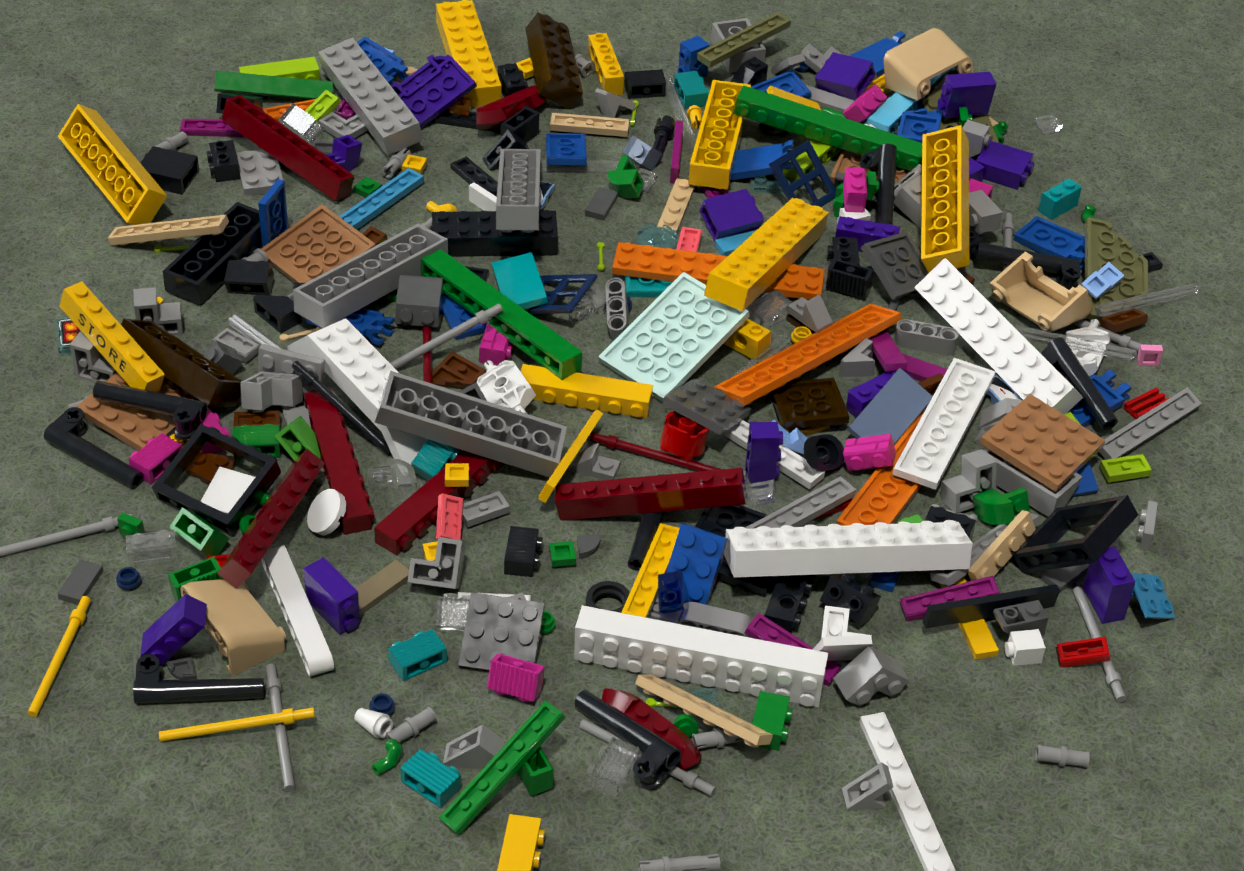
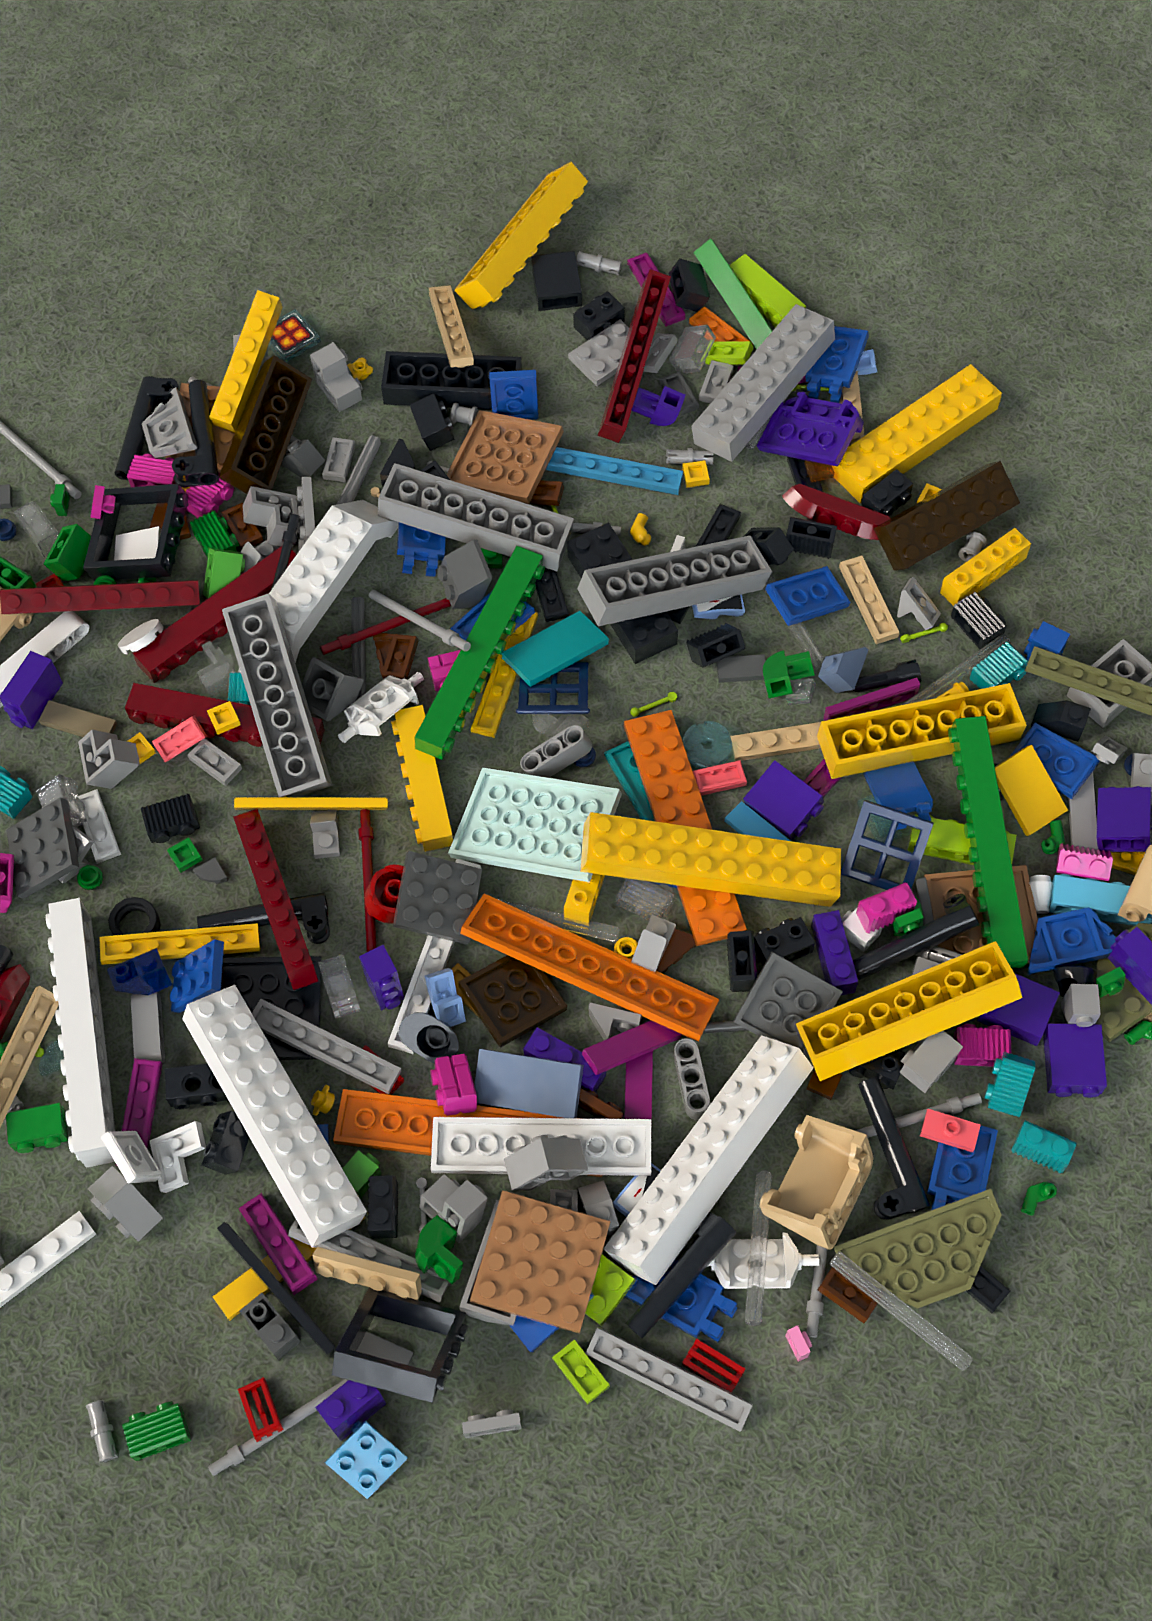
camera: 70 degrees right, 20 degrees up
(126, 422) = (169, 428): none -> light grey wing
(172, 484) = (101, 502): none -> dark pink tile
(366, 187) = (637, 451): green plate -> none
(577, 203) = (715, 645): none -> black brick
(970, 410) = (545, 1161): none -> light grey brick
(1011, 191) = (1010, 1084): none -> teal brick
(1025, 647) = (239, 1344): white brick -> none
(1028, 232) = (950, 1130): none -> coral plate
(1077, 719) = (156, 1431): none -> green brick
(1103, 280) = (890, 1244): light blue slope -> none

